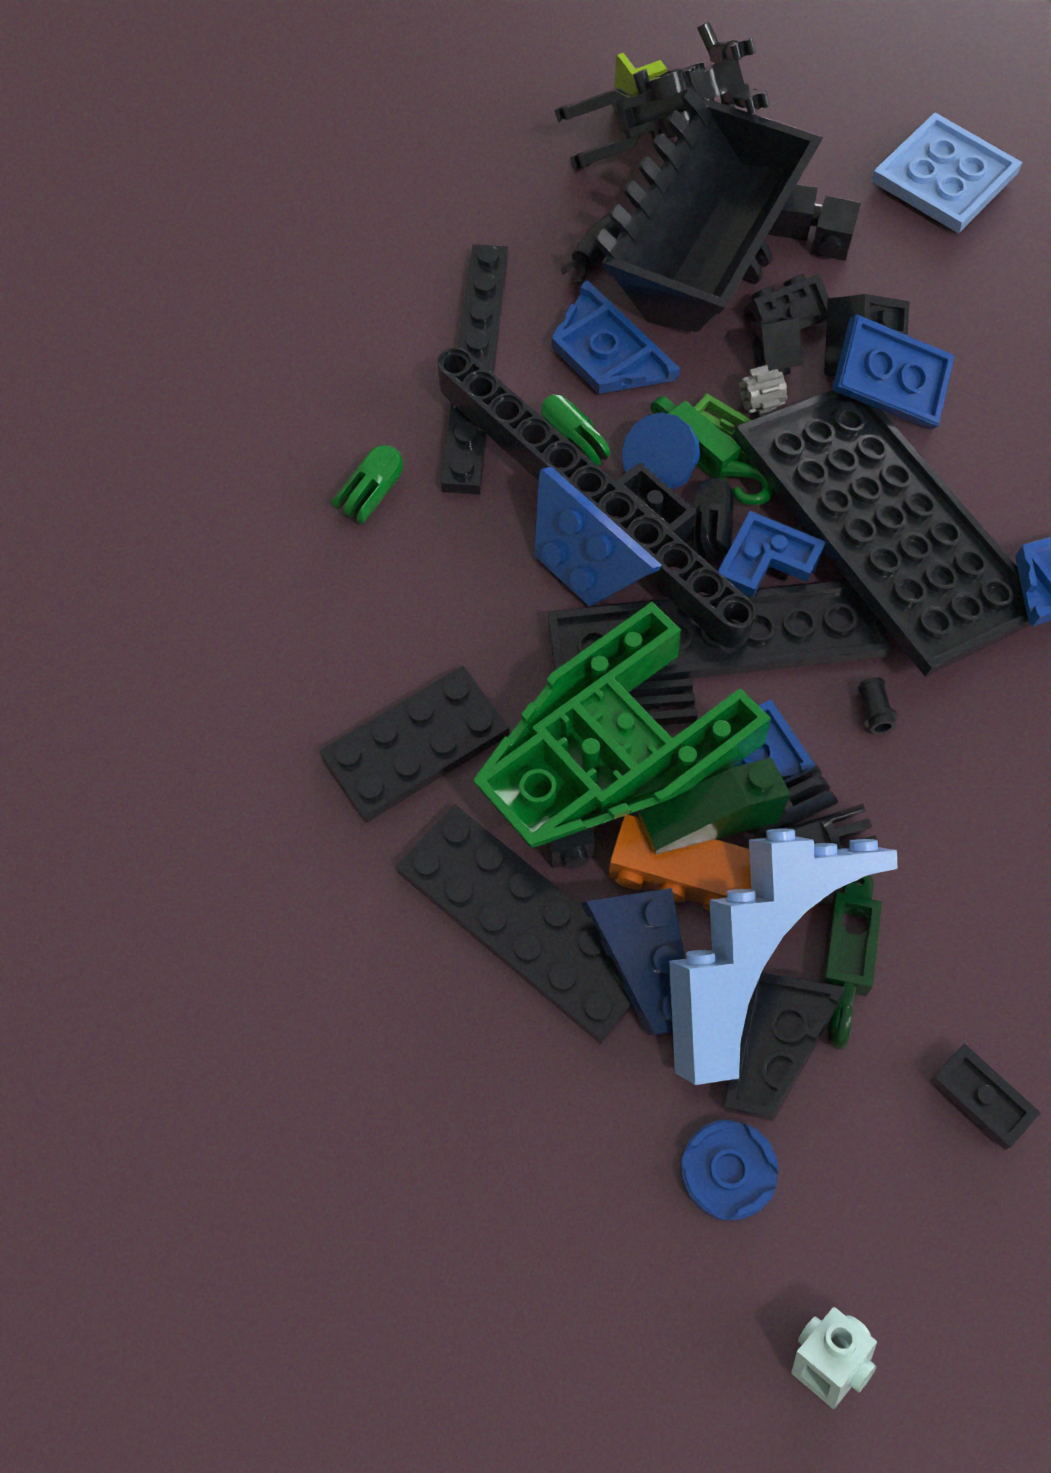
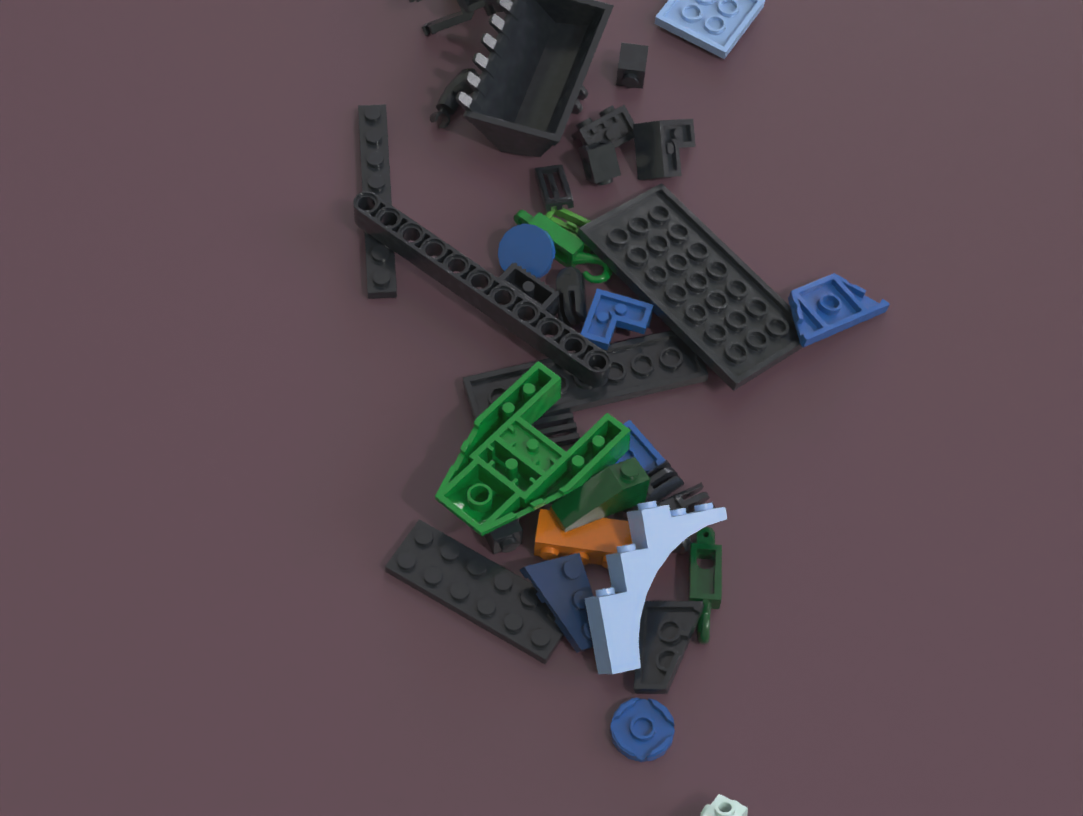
camera: 15 degrees left, 5 degrees down
(369, 483) = (318, 294): green arm -> none
(414, 743) = (382, 481): black plate -> none
(575, 427) = (461, 240): green arm -> none
(584, 543) = (481, 325): blue wing -> none
(608, 346) = (474, 175): blue wing -> none
(711, 389) = (556, 200): none -> black tile
(763, 390) = (594, 197): light grey gear -> none
(798, 214) = (604, 57): black brick -> none
(879, 715) = (706, 422): black pin -> none
(893, 372) = (687, 174): blue tile -> none
(985, 1097) = (802, 659): black plate -> none

